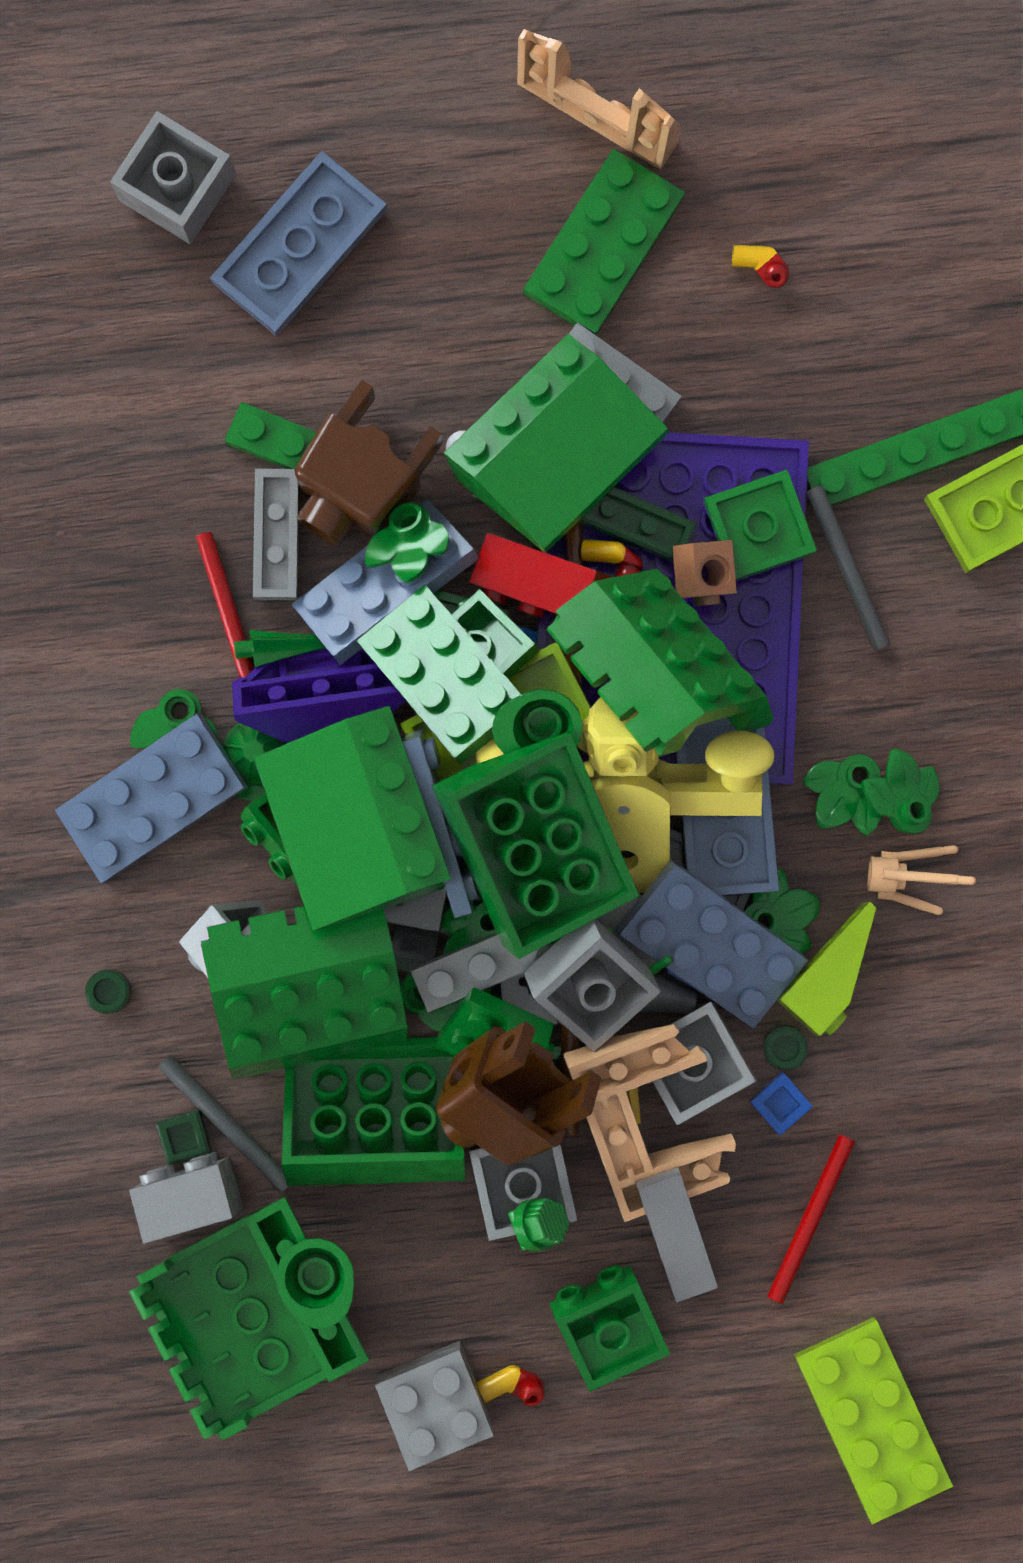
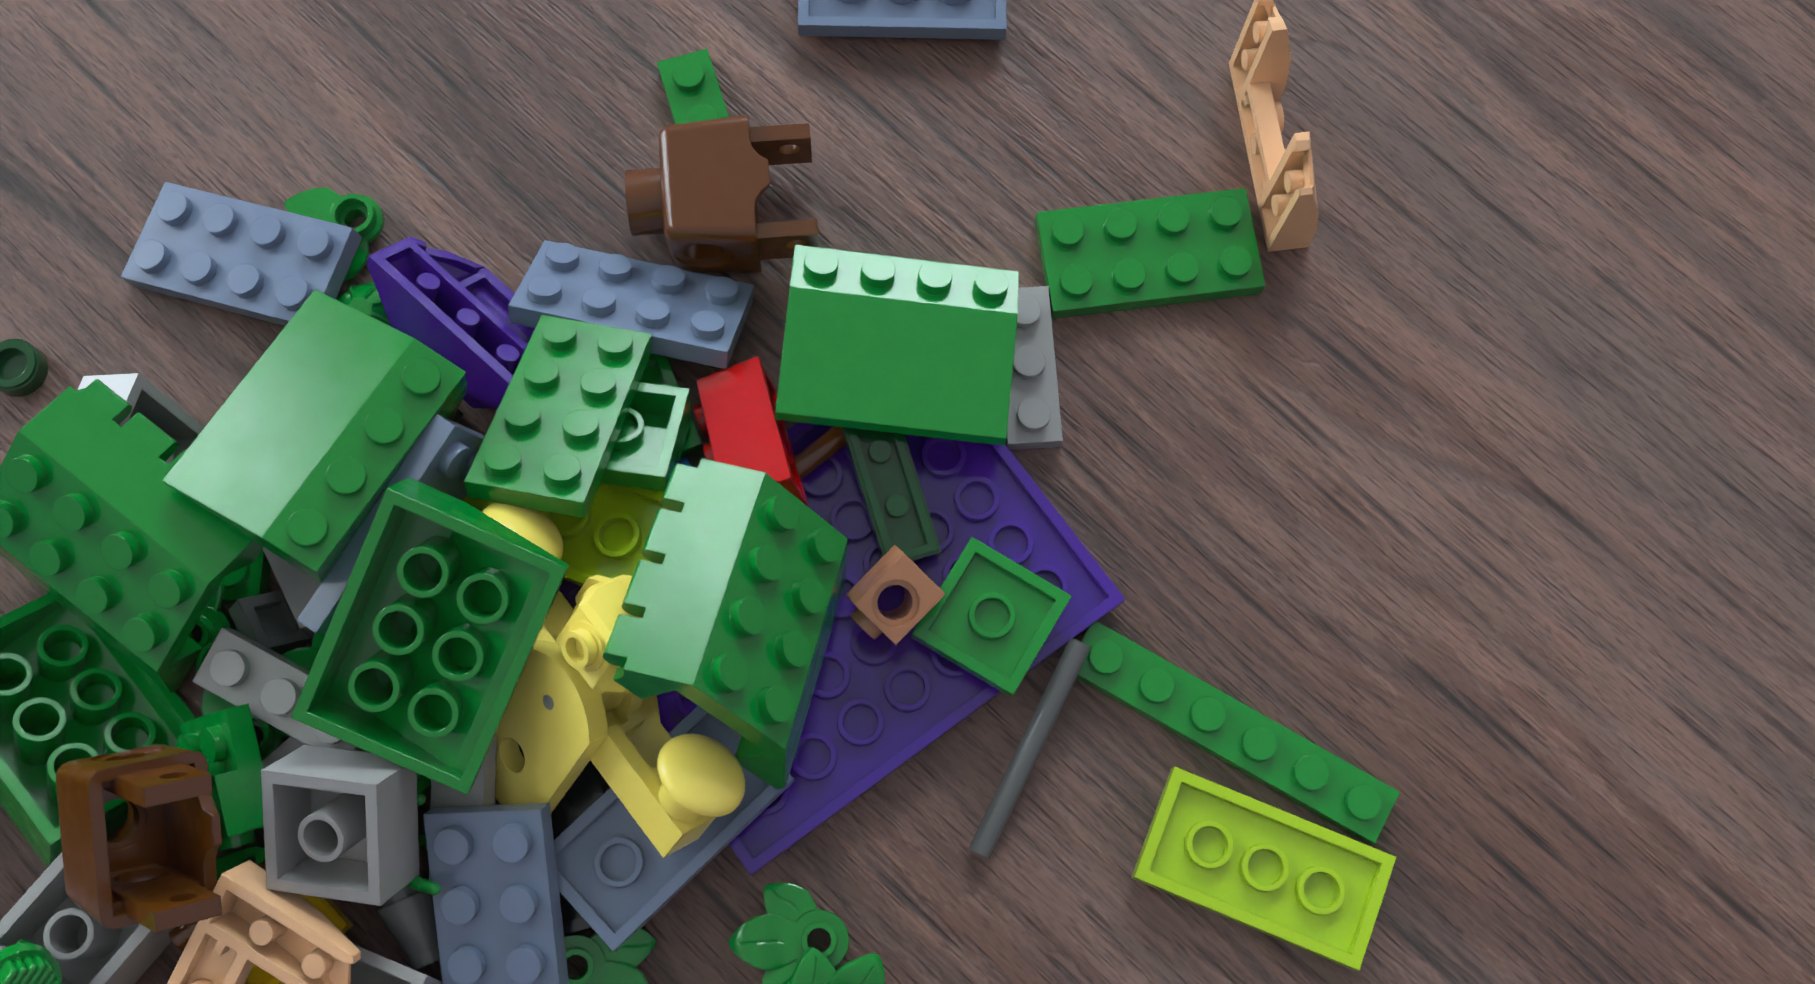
camera: 50 degrees right, 10 degrees down
(223, 598) = (499, 182): red bar -> none
(272, 646) = (484, 251): green piece -> none
(276, 535) = (595, 177): light grey plate -> none
(407, 542) = (683, 286): green plate -> none
(535, 718) = (564, 525): green piece -> none
(613, 553) = (839, 493): yellow arm -> none
(764, 261) = (1268, 414): arm -> none

